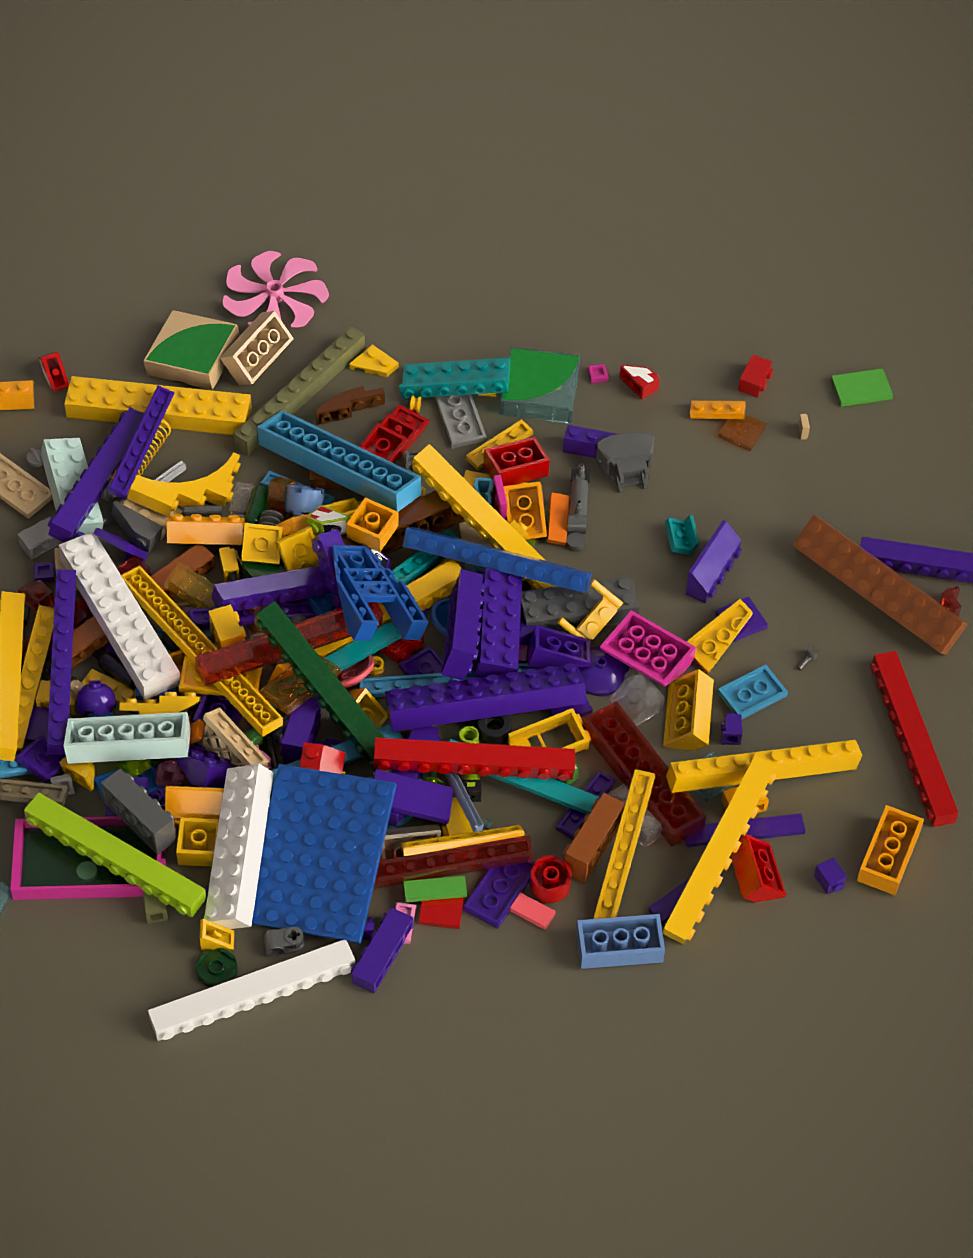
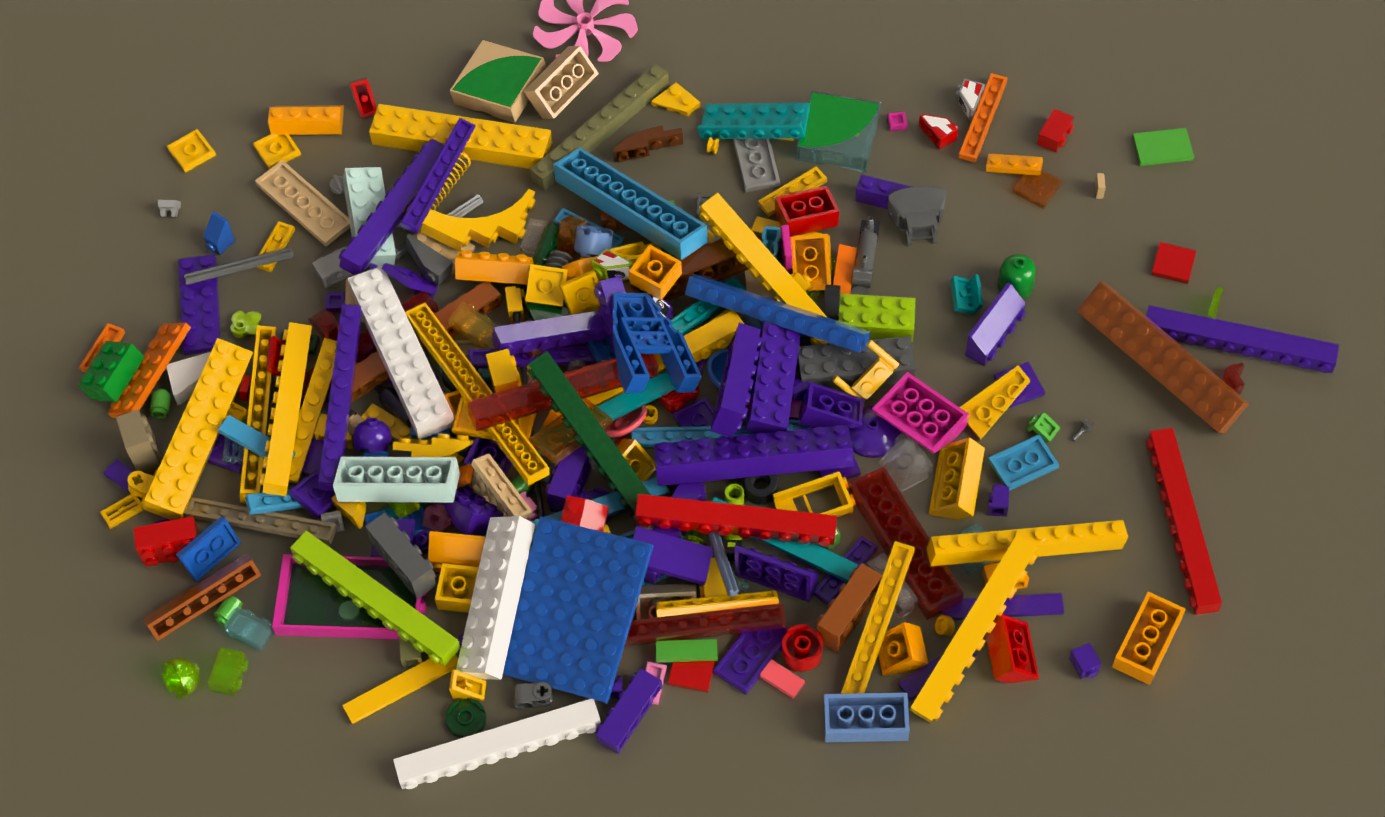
camera: 10 degrees right, 5 degrees up
(144, 943) = (397, 688): none -> yellow tile
(205, 511) = (494, 248): dark grey tile -> none
(395, 434) = (688, 177): red slope -> none
(517, 809) = (775, 573): none -> dark purple slope
(550, 546) = (832, 301): none -> black tyre
(602, 557) = (880, 315): none -> lime brick
(650, 876) = (902, 650): none -> light orange slope
(668, 346) = (970, 96): none -> slope
(682, 366) = (983, 117): none -> orange plate
(689, 850) = (945, 625): none -> yellow tile
(734, 510) = (1019, 272): none -> green cylinder
(768, 655) = (1043, 425): none -> bright green bracket
(882, 496) = (1173, 262): none -> red tile
(926, 531) = (1215, 302): none -> clear neon green tile

